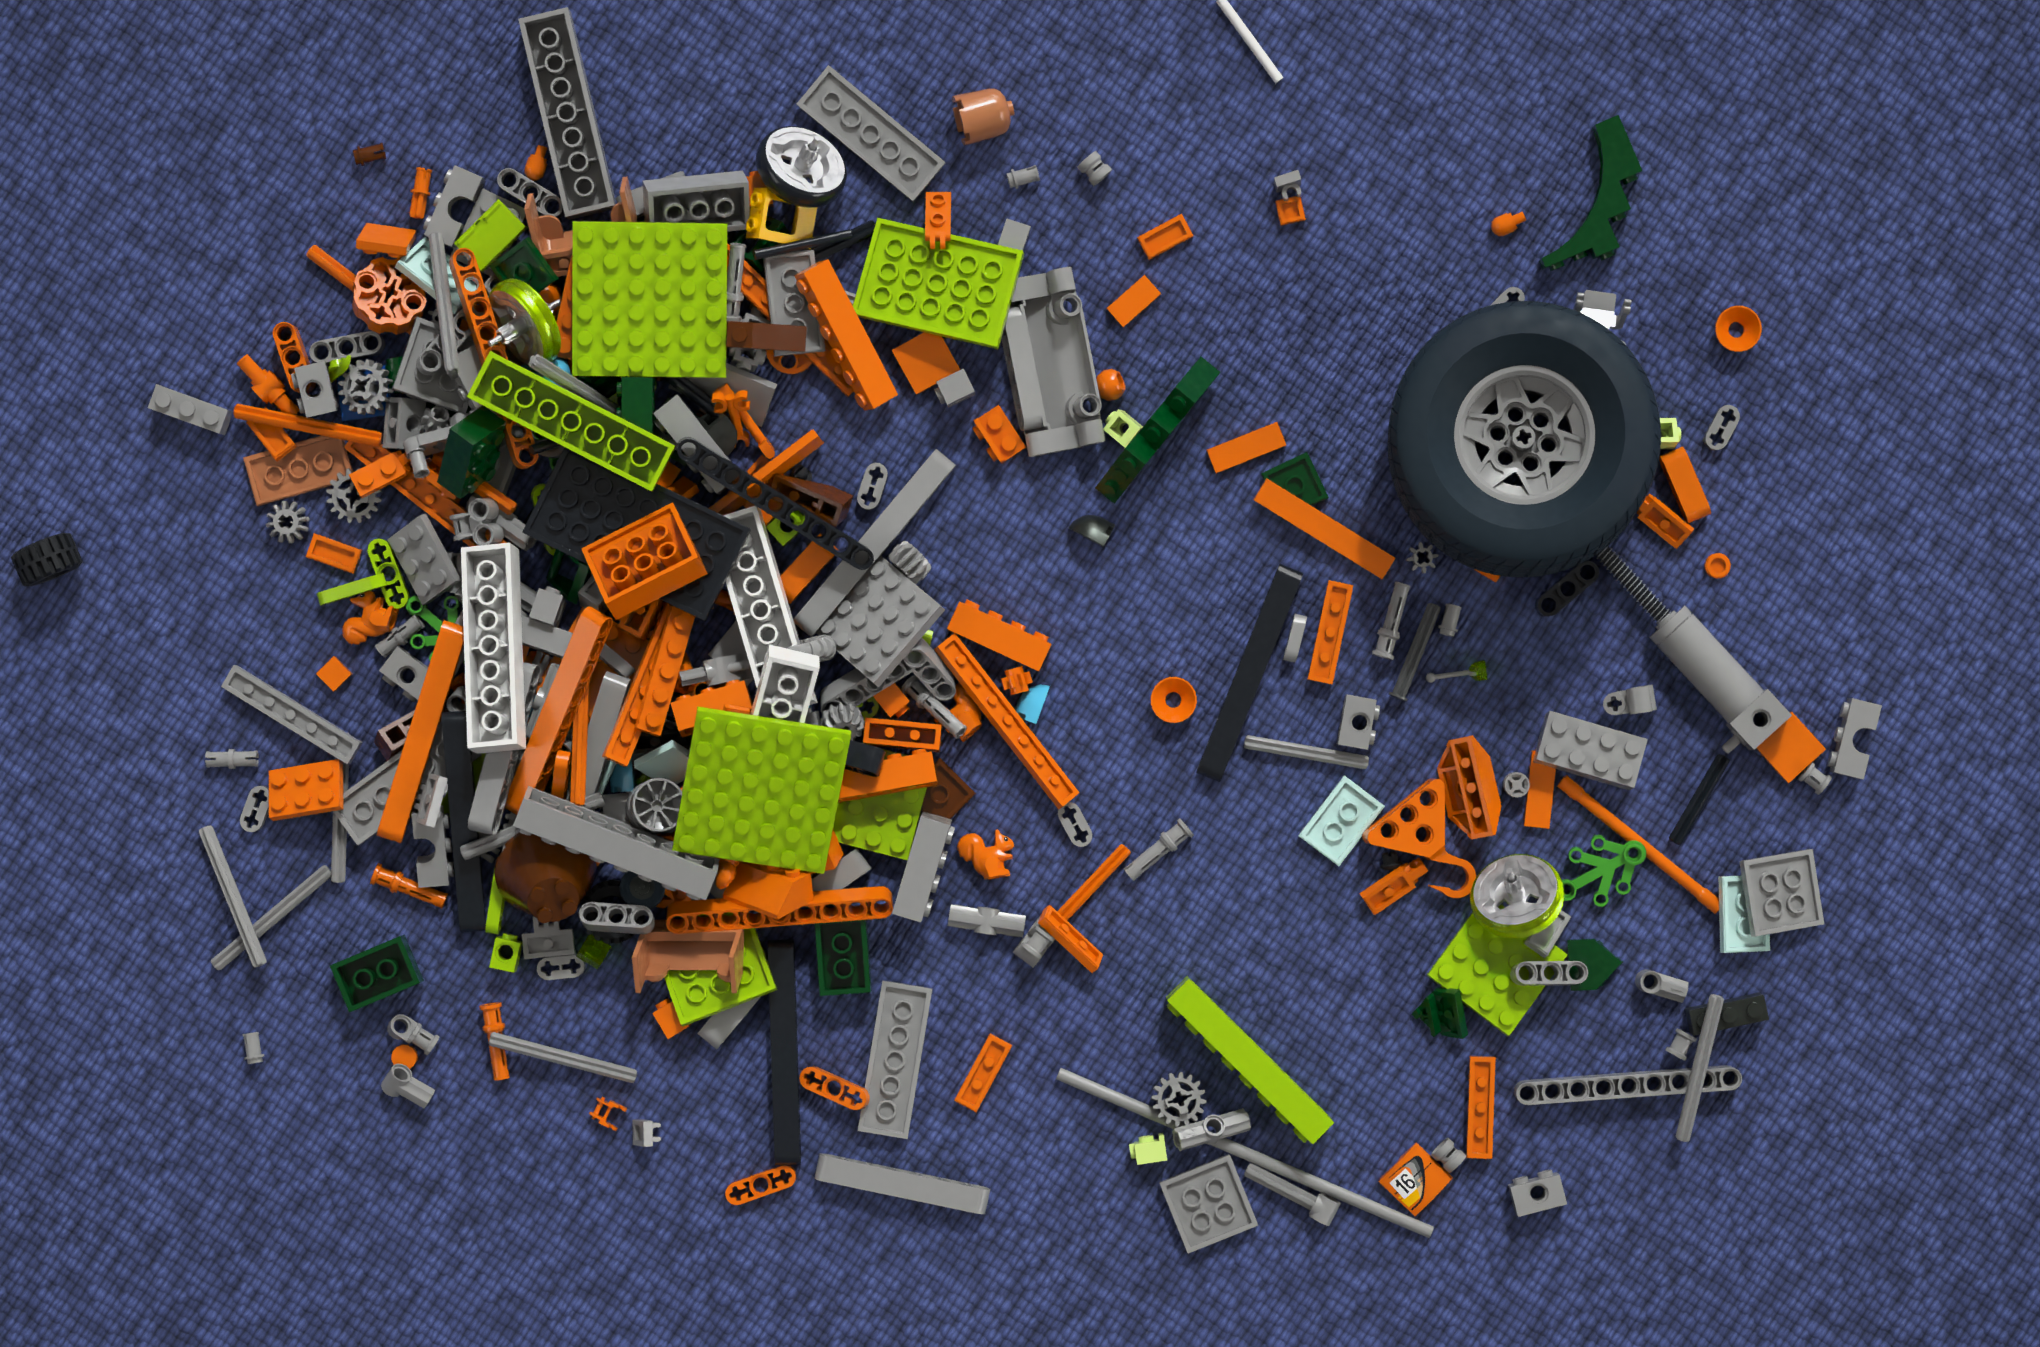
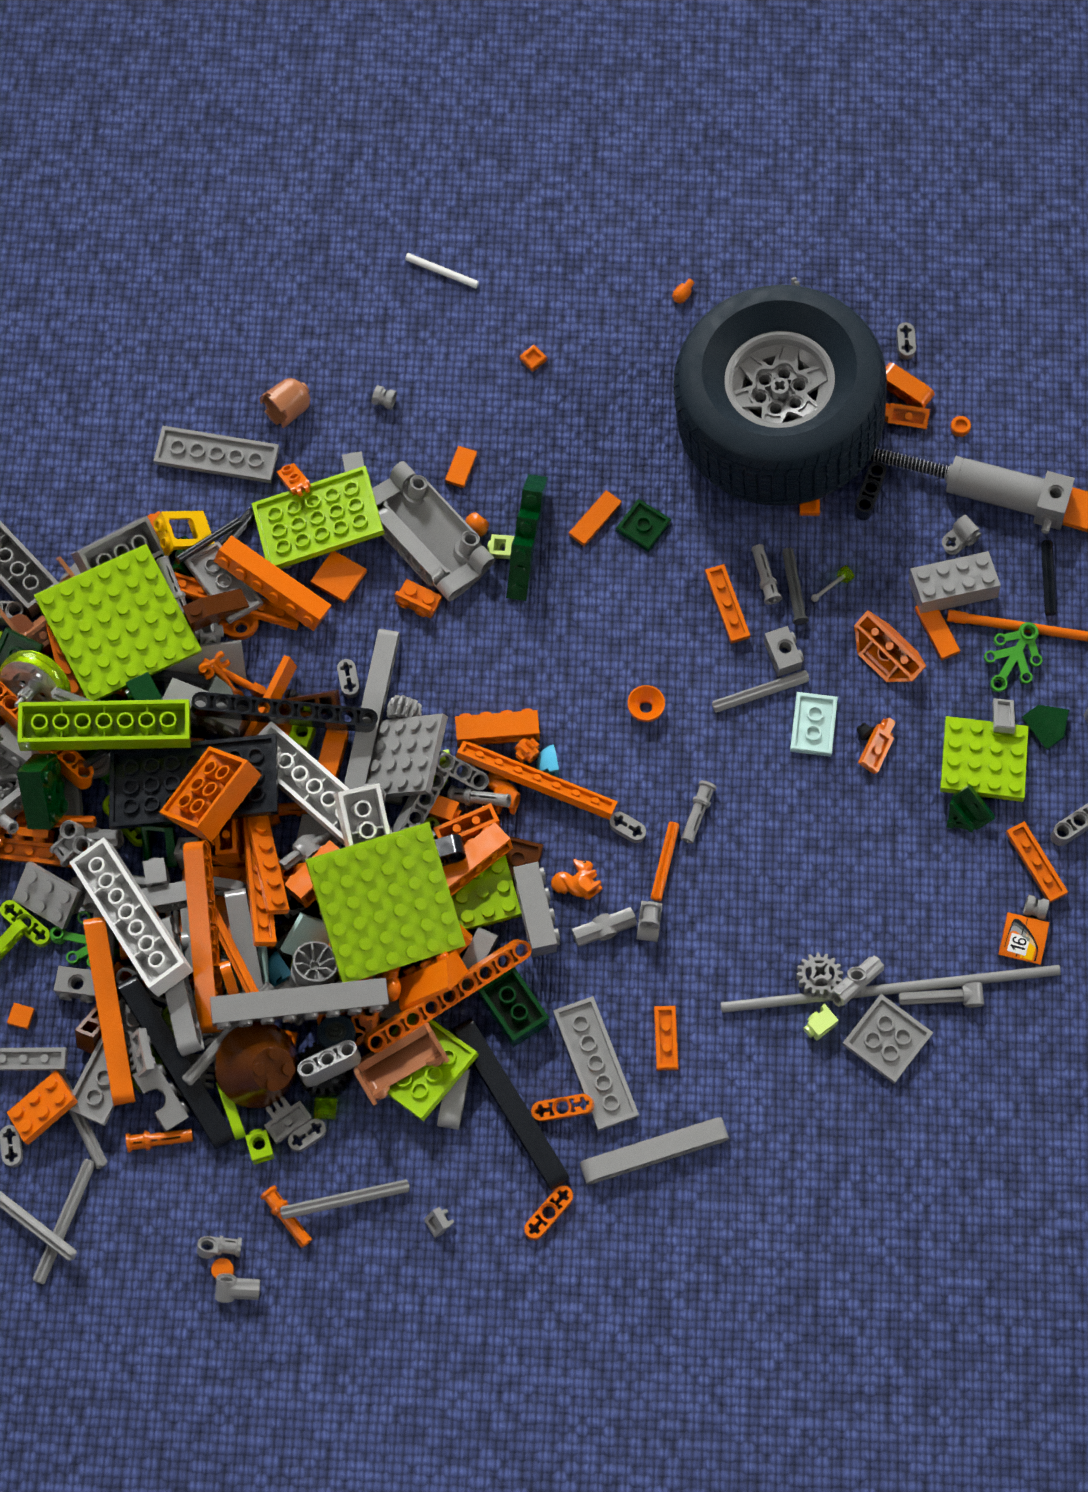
camera: 25 degrees left, 20 degrees down
(252, 1048) = (100, 1328): light grey pin -> none
(374, 619) = (31, 960): orange animal -> none
(376, 973) = (167, 1214): dark green brick -> none
(399, 636) = (56, 960): light grey pin -> none
(603, 1120) = (401, 1231): orange piece -> none
(668, 1019) = (410, 1125): orange brick -> none
(802, 148) = (179, 491): flat silver wheel -> none
(954, 388) = (369, 579): light grey brick -> none
(1022, 176) = (337, 428): light grey pin -> none
(1070, 938) = (673, 903): orange tile -> none
(1093, 528) = (520, 625): pearl dark grey brick -> none
(1165, 237) = (458, 417): orange tile -> none
(1249, 672) = (688, 660): black beam -> none
(1250, 1060) = (853, 916): lime brick -> none
(1288, 181) = (520, 339): light grey tile -> none
(1295, 638) = (705, 620): light grey beam -> none
(1324, 528) = (681, 539): orange tile -> none
(1429, 557) = (759, 517): light grey gear -> none
(1432, 819) = (876, 687): orange piece -> none
(1450, 620) = (805, 555): light grey pin -> none
(1515, 881) = (961, 692): flat silver wheel -> none
(1519, 787) = (920, 629): light grey wheel -> none
(1560, 969) = (1028, 731): light grey beam -> none
(1617, 164) = (734, 222): dark green arch -> none
(1751, 328) = (876, 267): orange piece -> none

